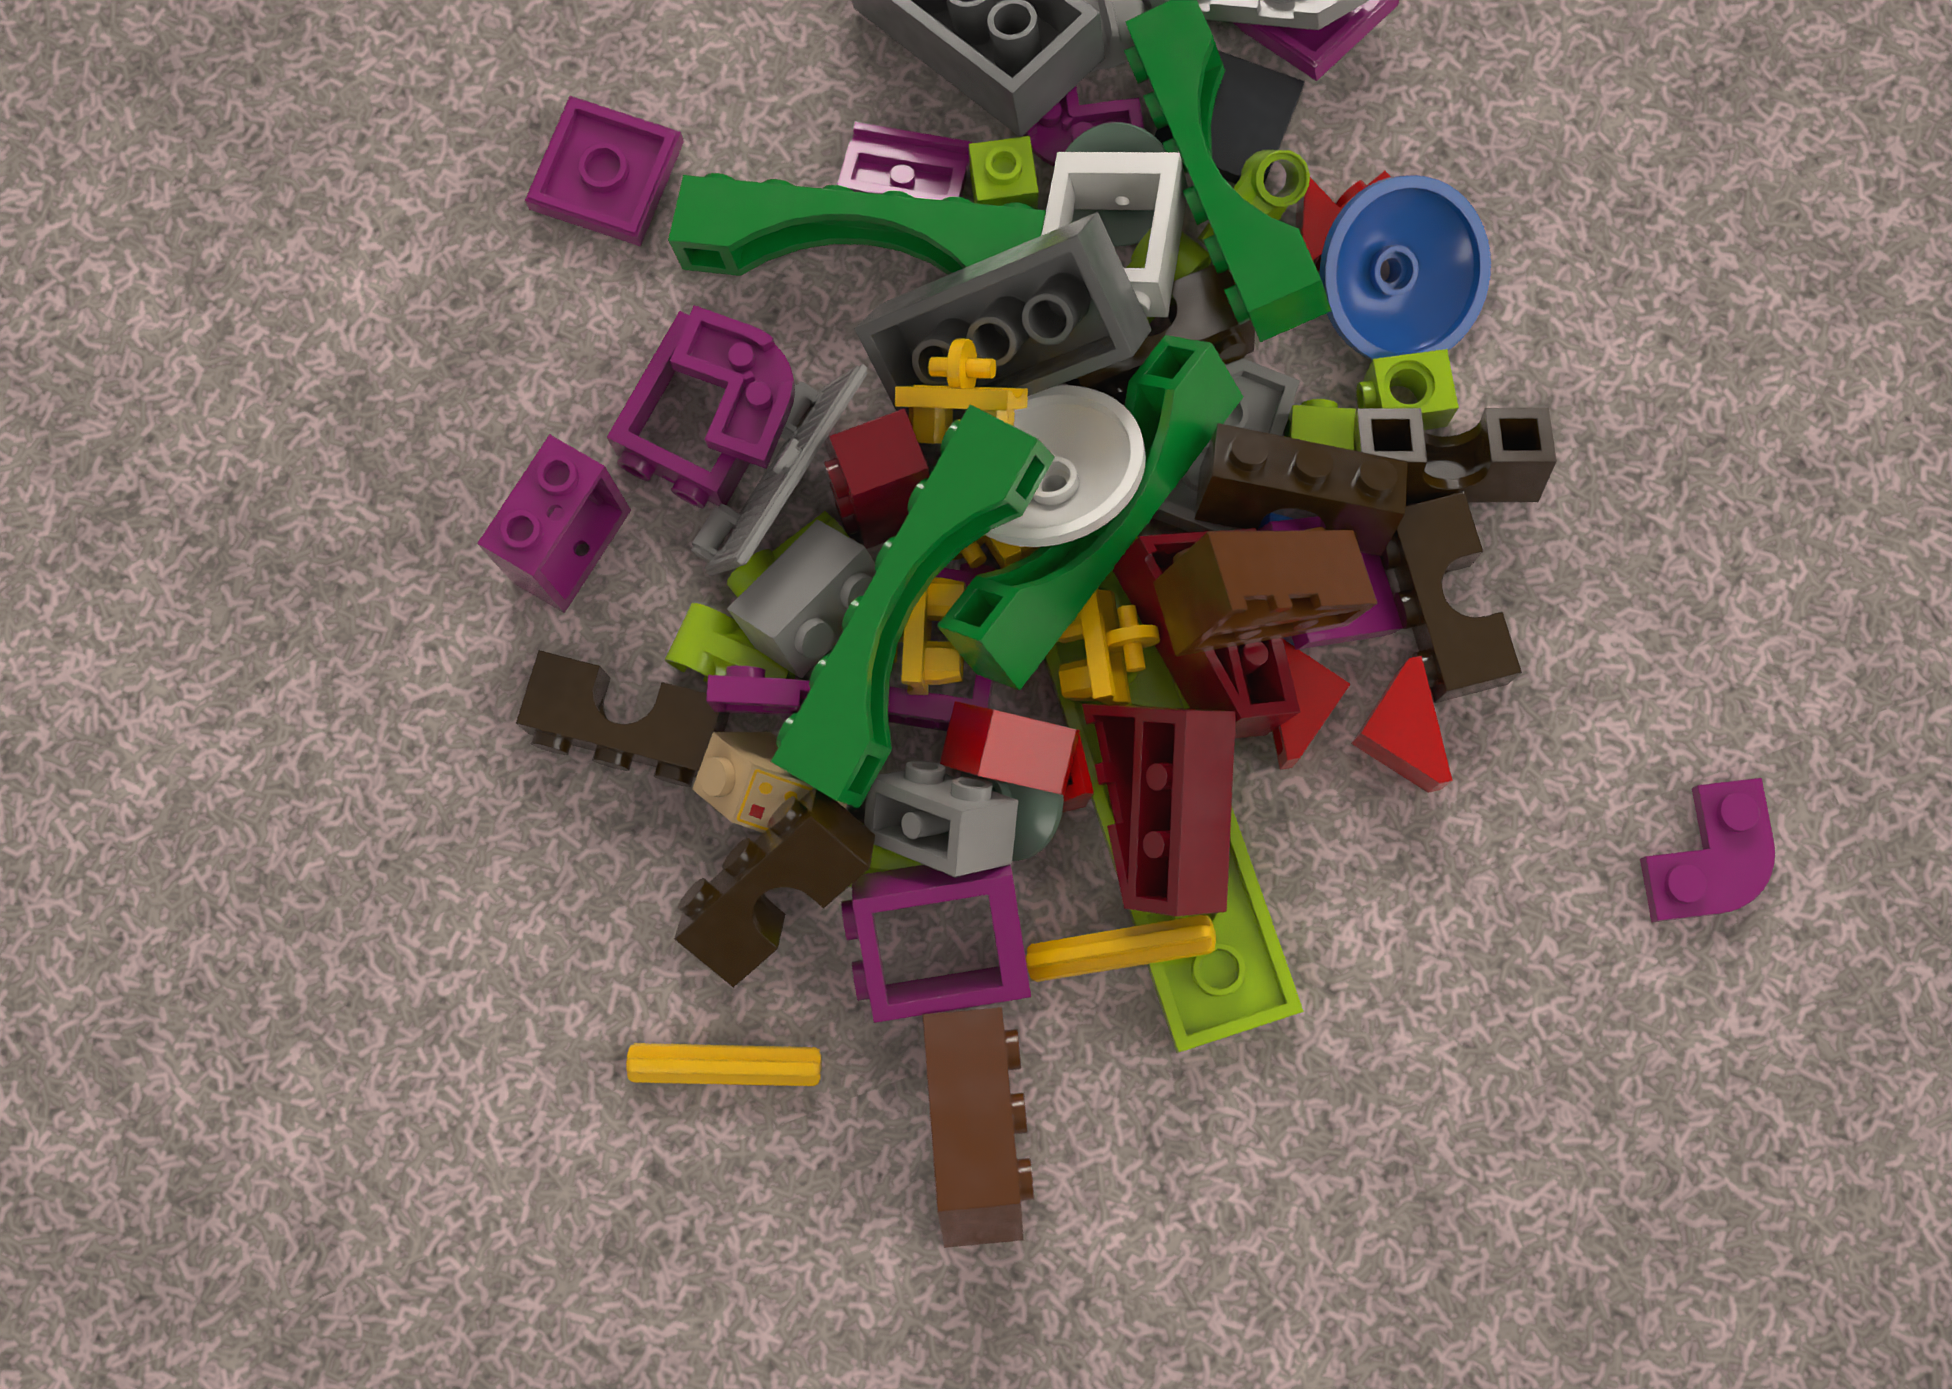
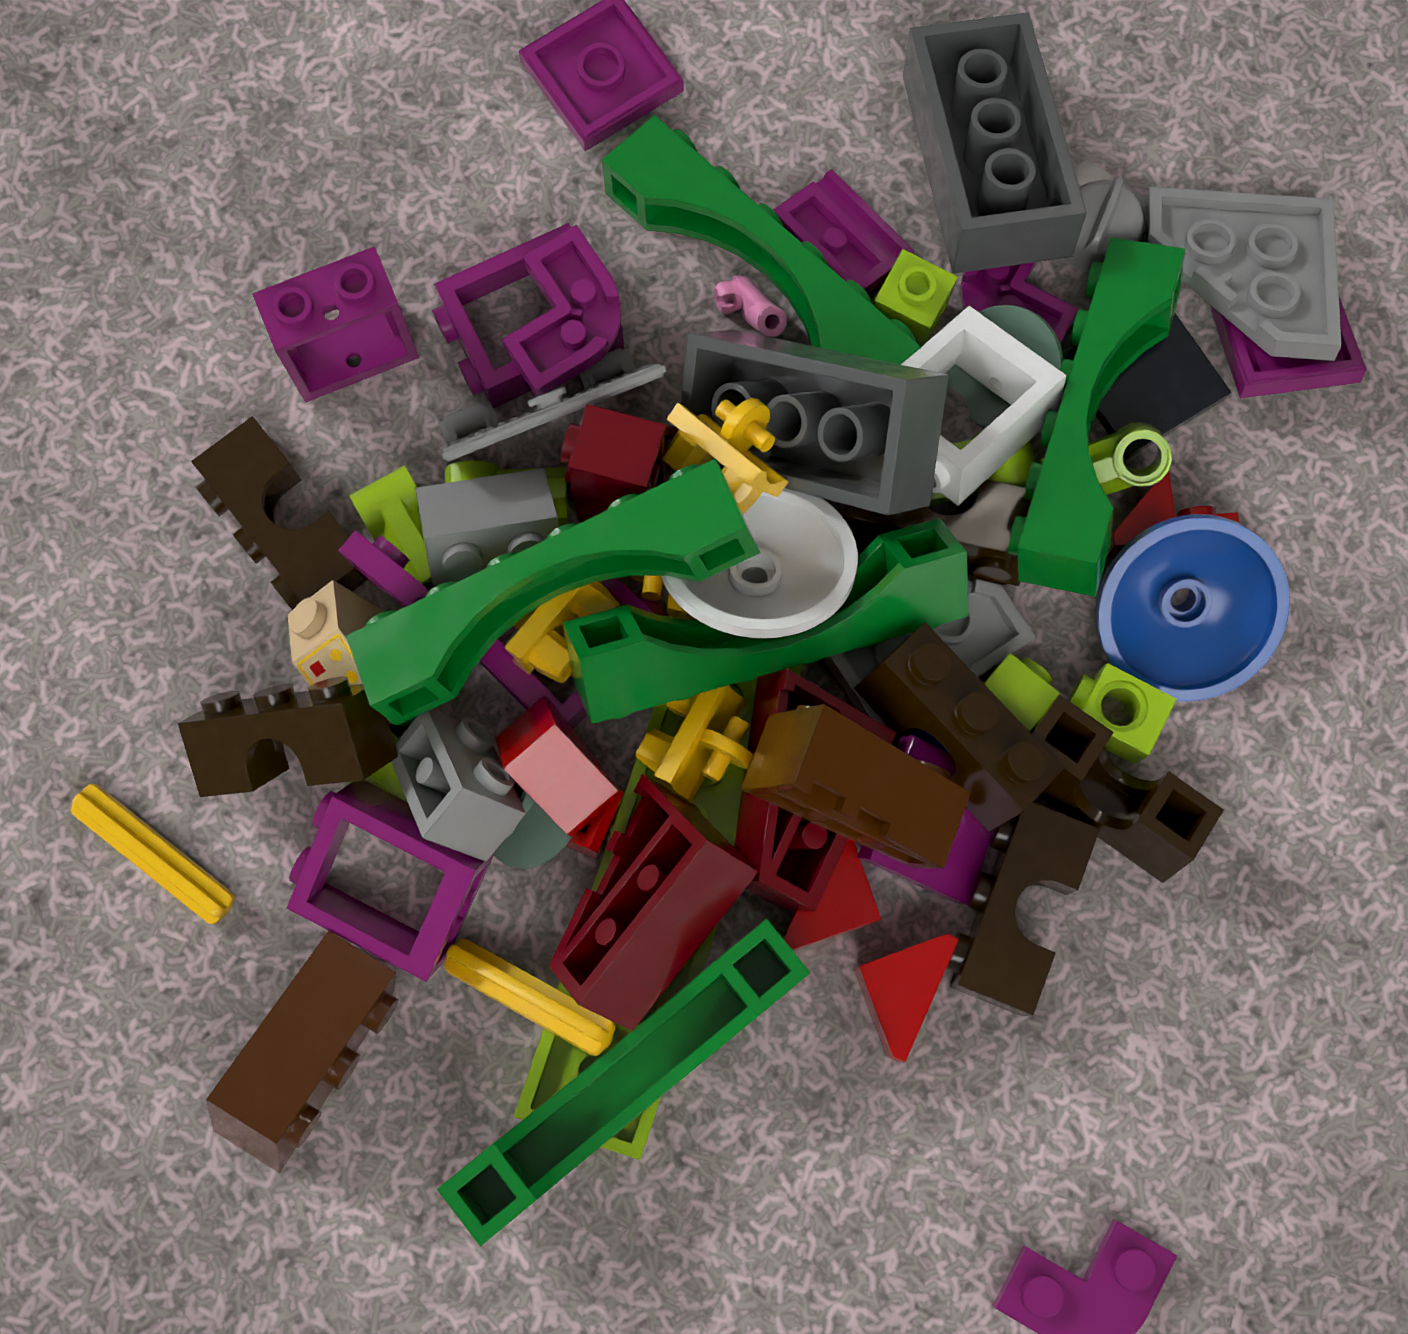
camera: 30 degrees right, 0 degrees up
(875, 276) = (753, 304): none -> bright pink arm
(1250, 951) = (622, 1082): none -> green arch

